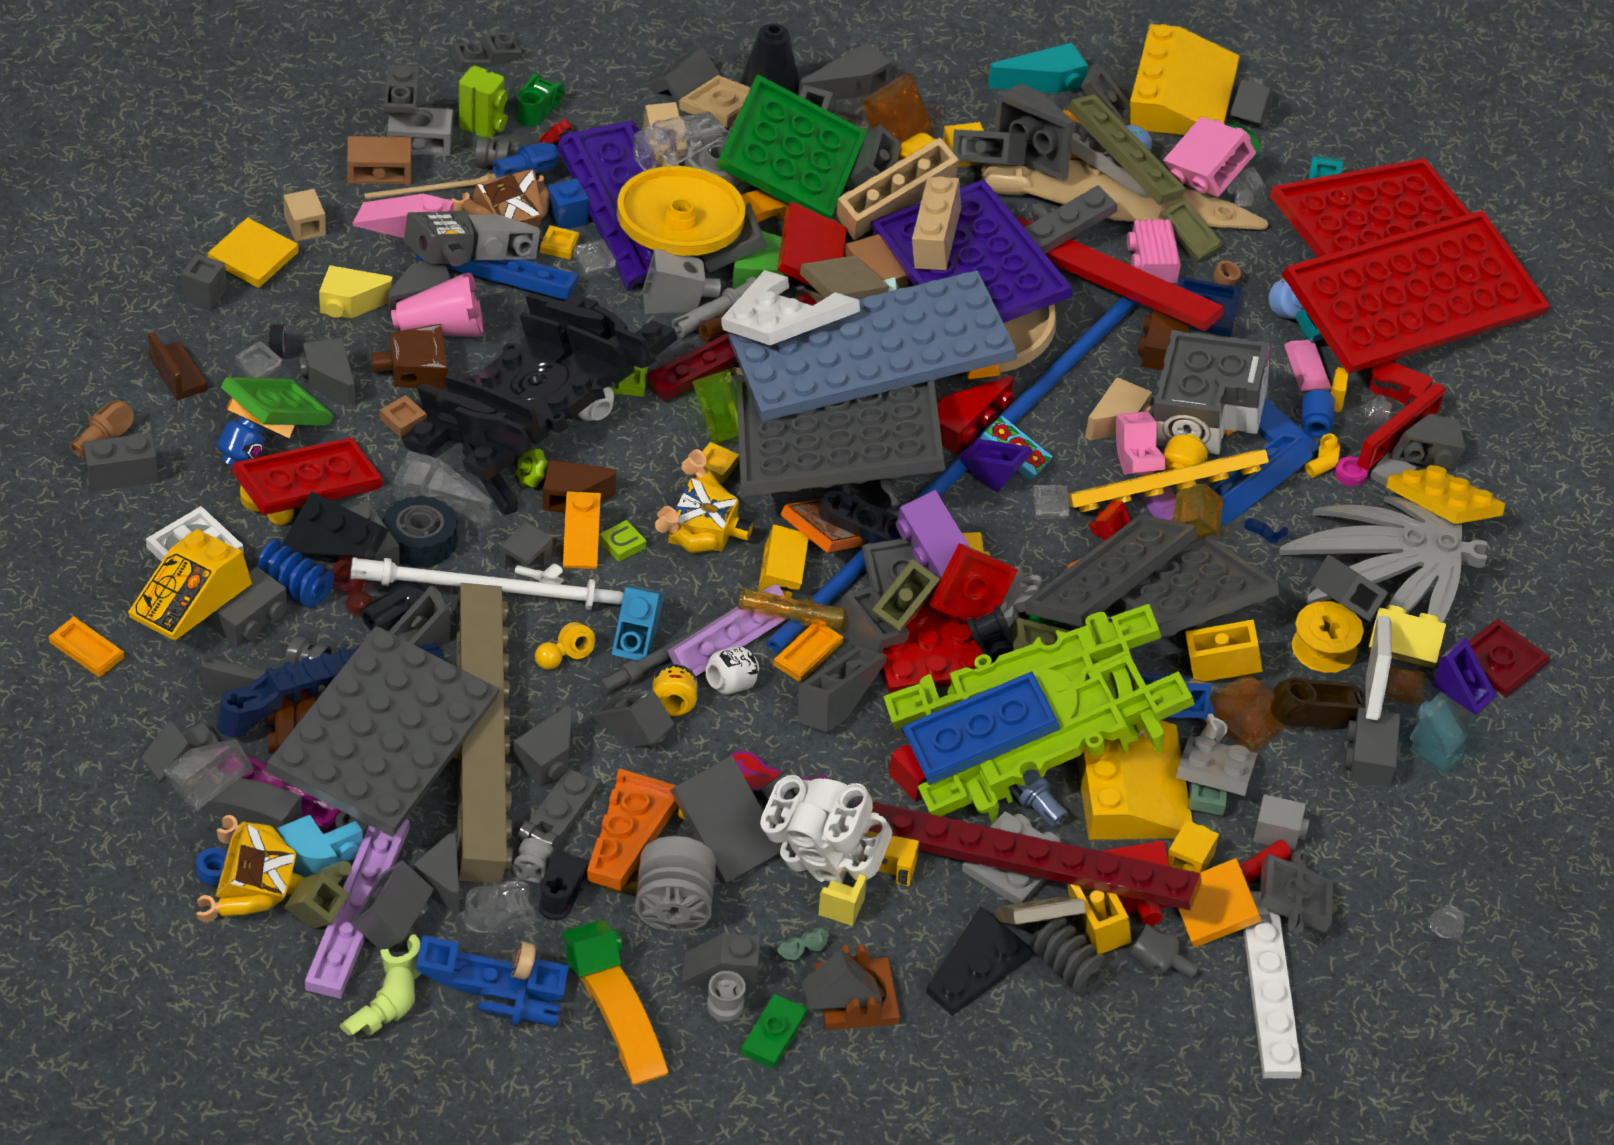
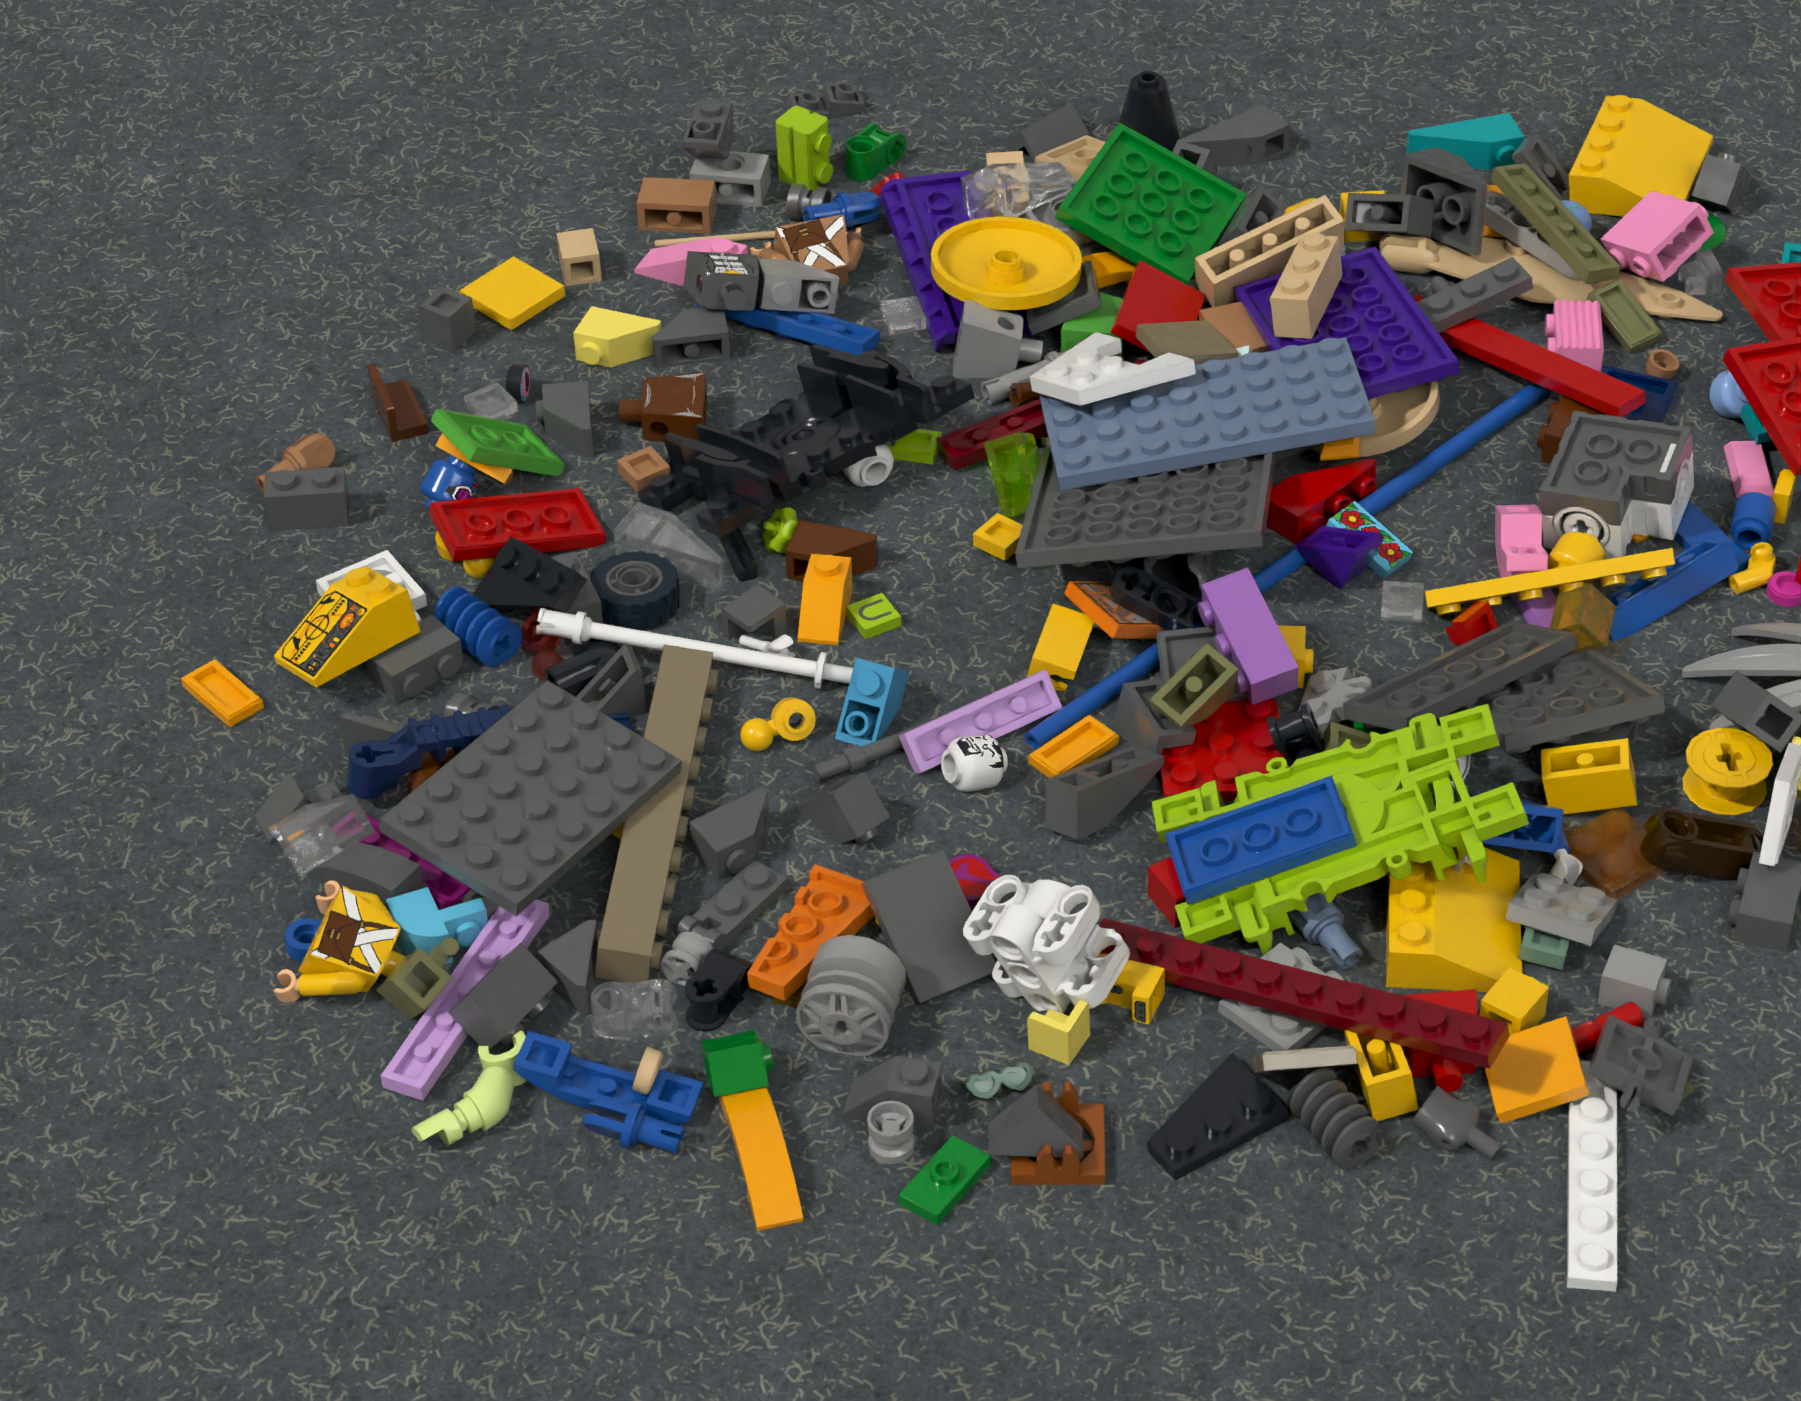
camera: 15 degrees right, 5 degrees down
(444, 304) = (720, 352): bright pink cone -> none
(559, 242) = (866, 298): yellow tile -> none
(568, 204) = (882, 258): blue brick -> none
(676, 689) = (900, 780): yellow head -> none
(704, 513) = (974, 590): torso -> none
(801, 610) = (1055, 696): clear yellow pin -> none
(898, 109) = (1288, 170): clear orange plate -> none
(972, 584) = (1279, 677): red tile -> none
(1119, 398) = (1504, 488): tan slope -> none
(1264, 530) = (1667, 648): clear blue piece -> none

